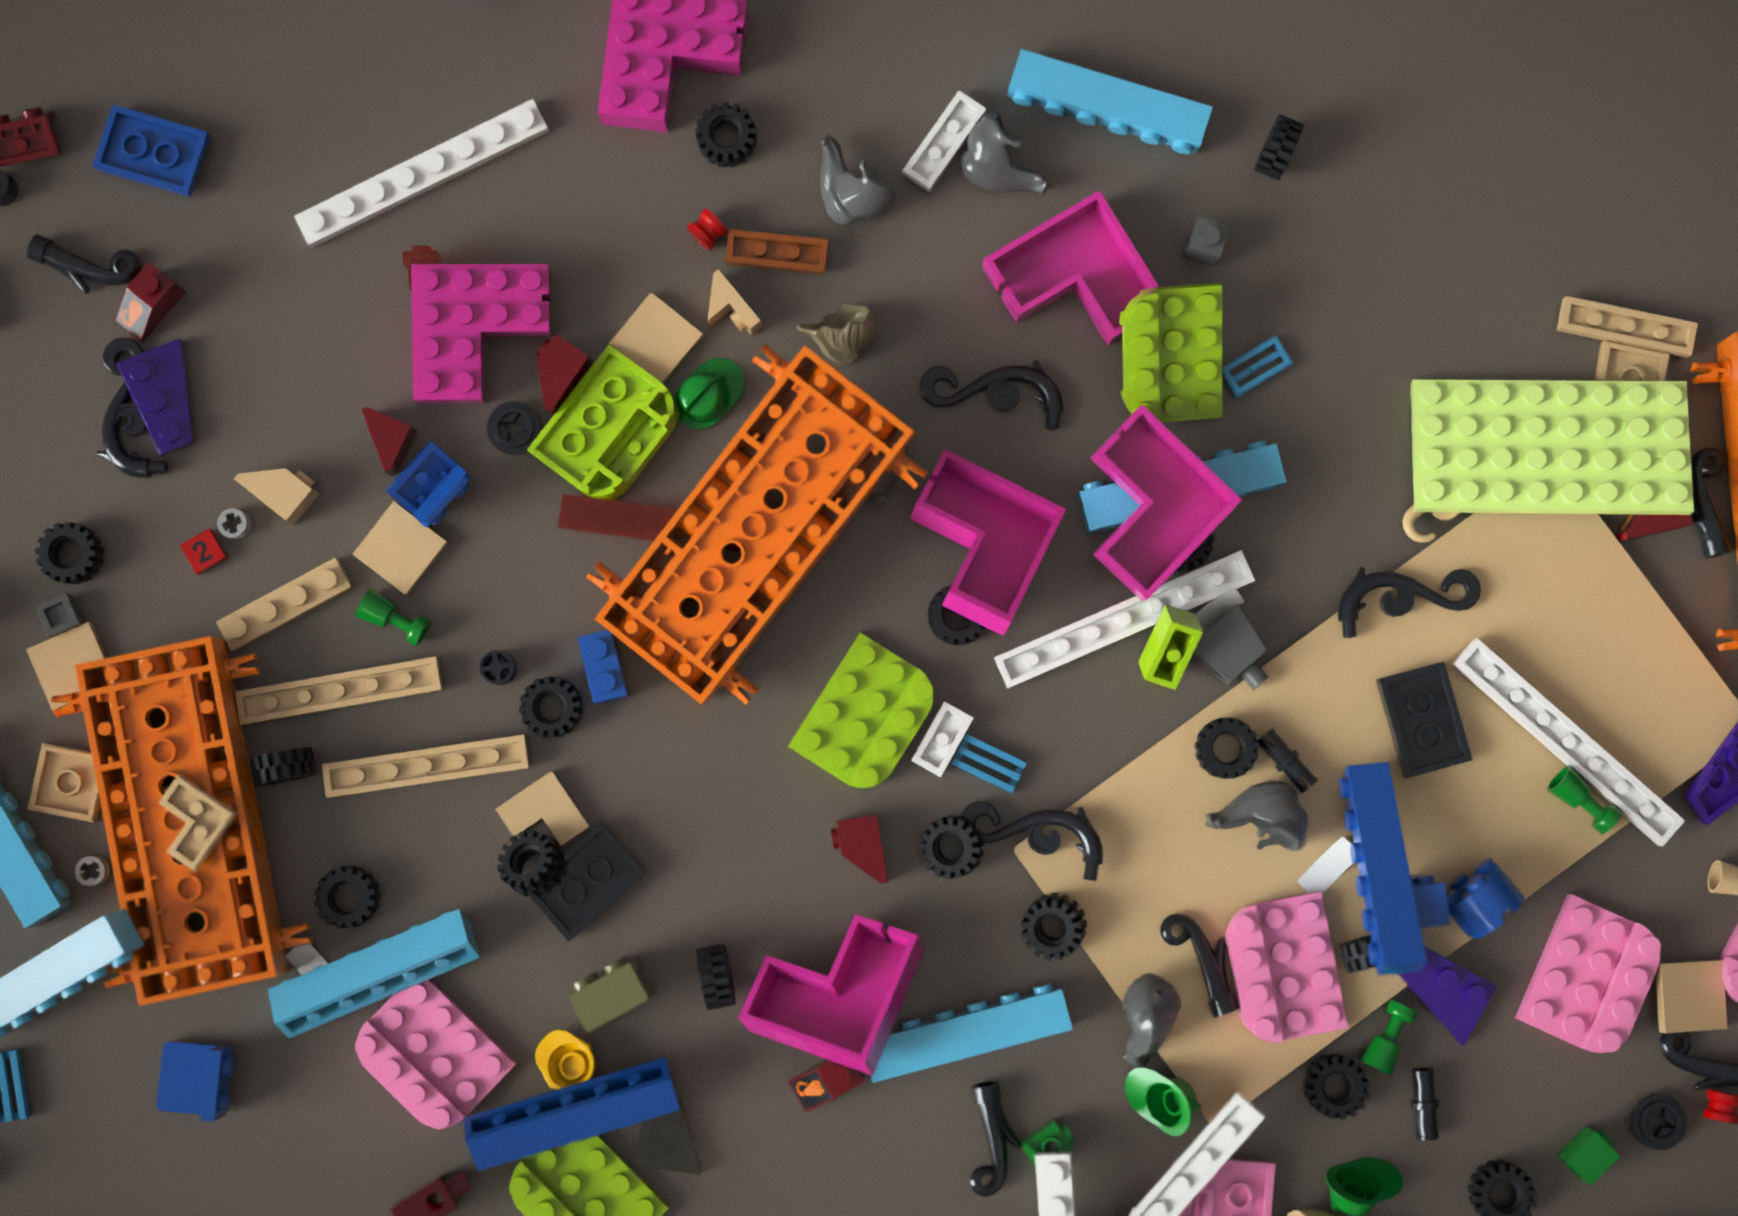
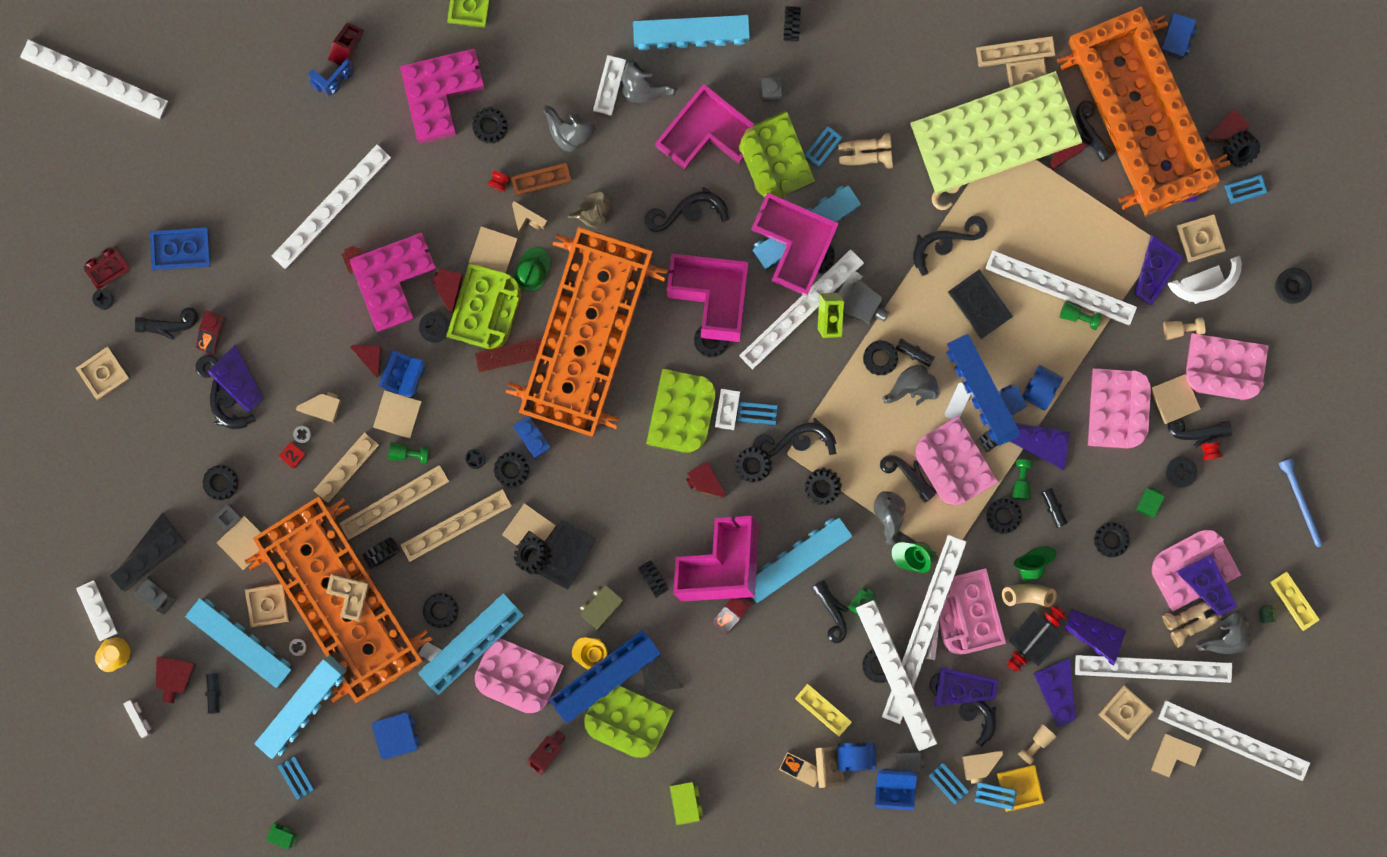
camera: 15 degrees left, 0 degrees up
(1312, 408) = (860, 158): none -> tan piece

